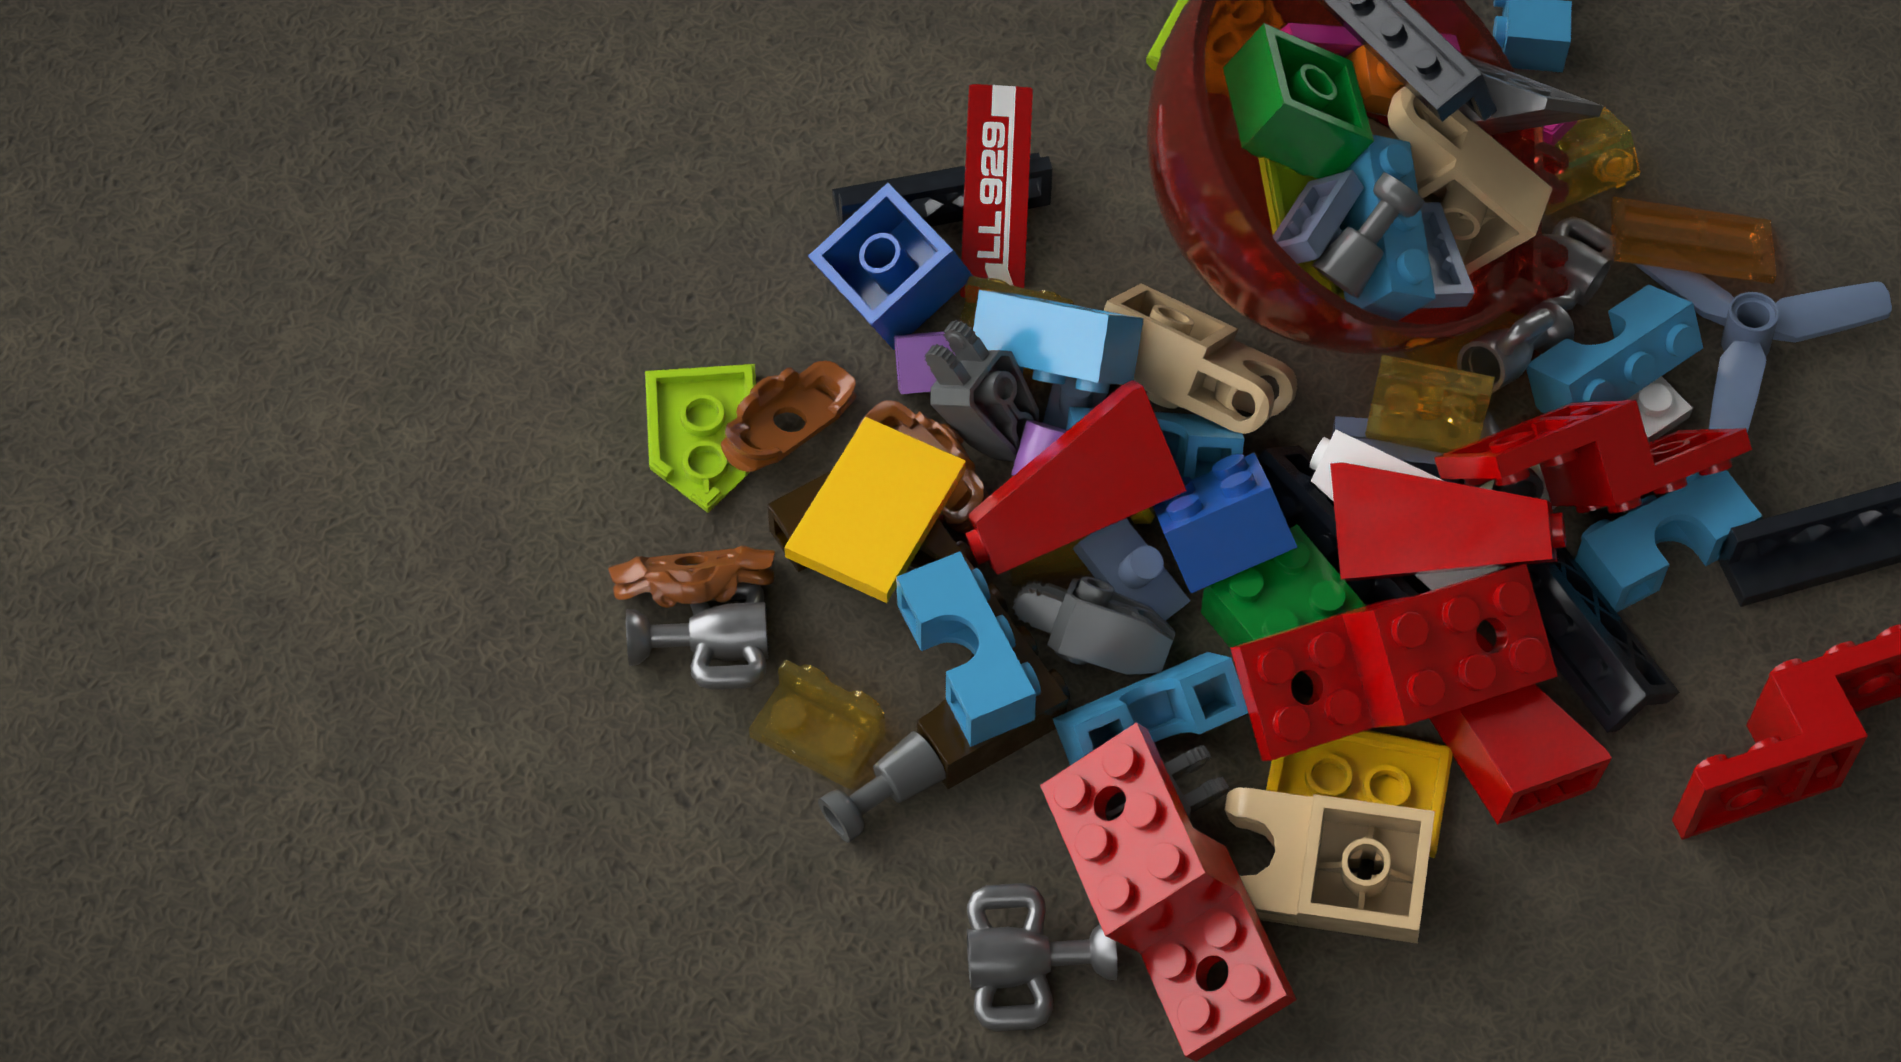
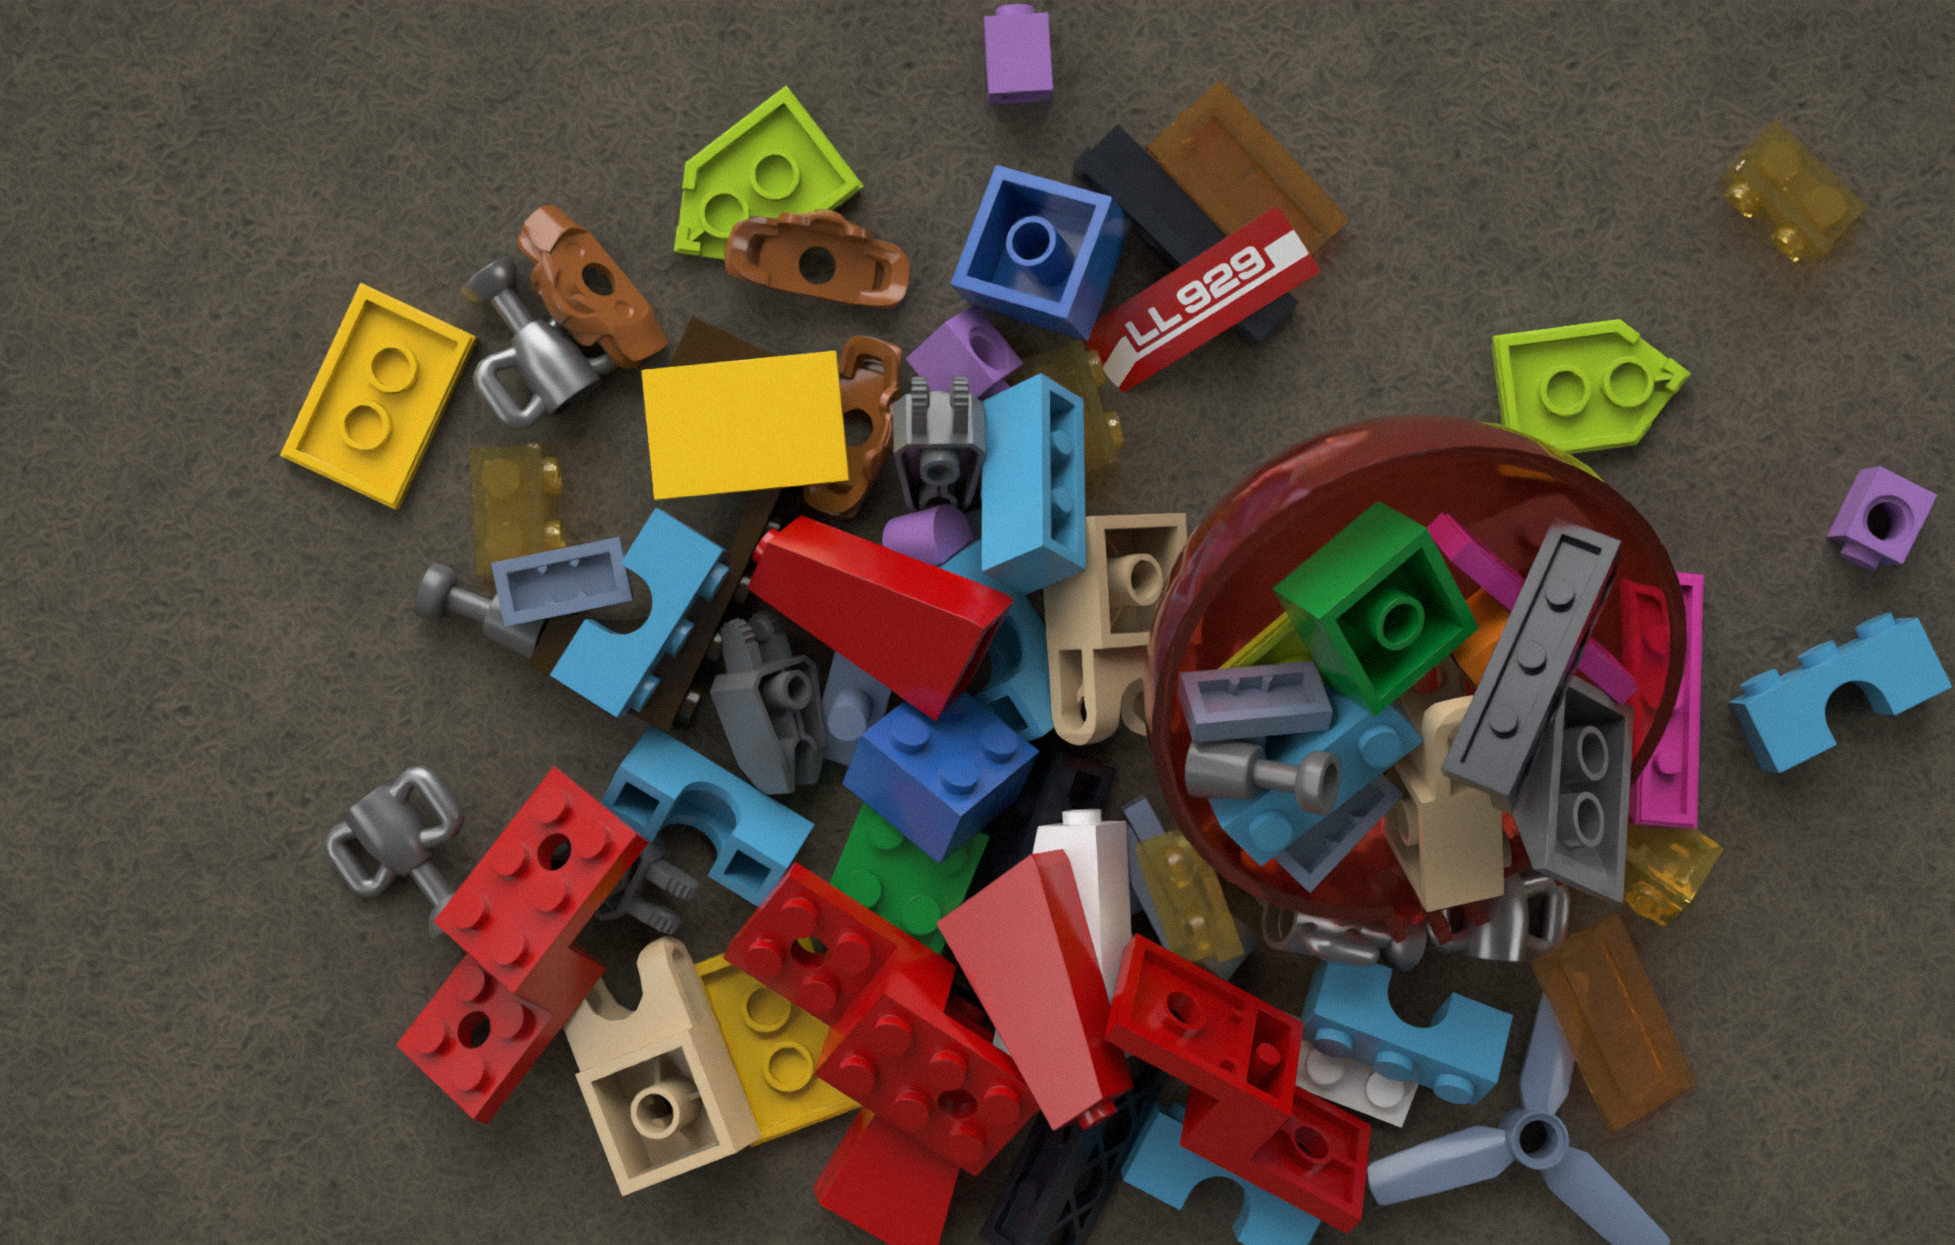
camera: 55 degrees right, 30 degrees up
(661, 774) = (379, 396): none -> yellow tile
(740, 218) = (1018, 55): none -> medium lavender brick
(902, 694) = (562, 581): none -> sand blue tile
(910, 141) = (1241, 170): none -> clear orange piece

